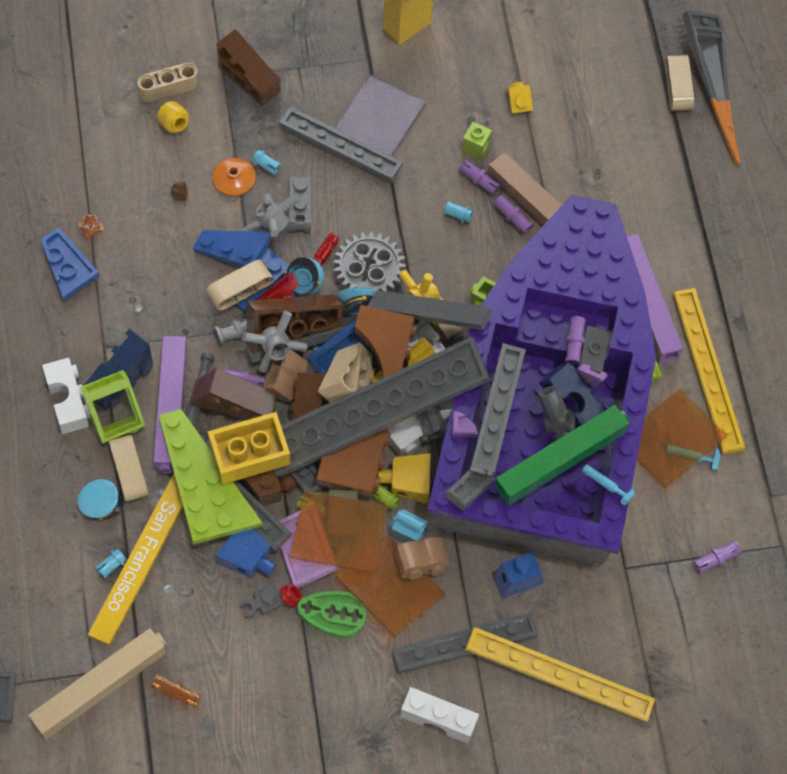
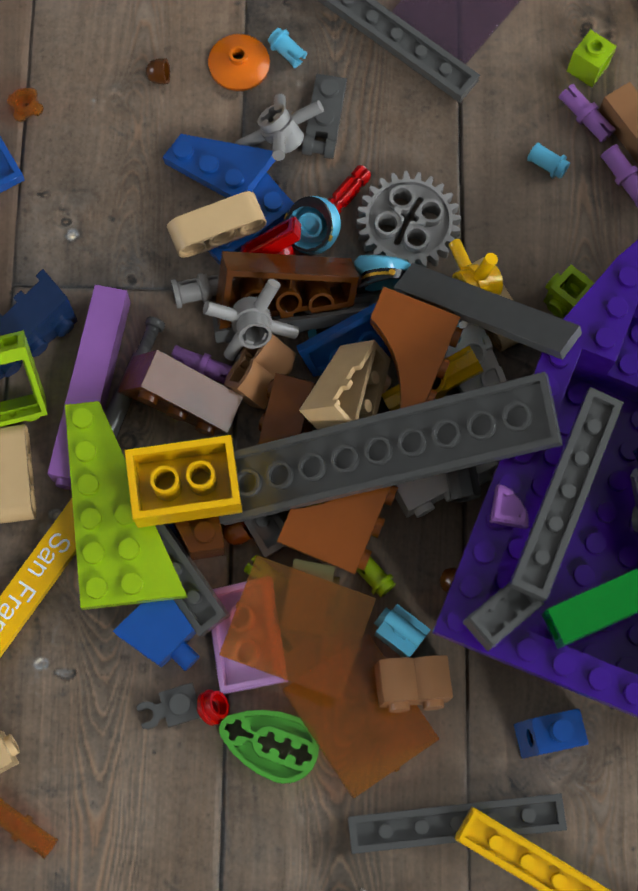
camera: 10 degrees right, 10 degrees up
(409, 477) = (414, 552): yellow torso -> none

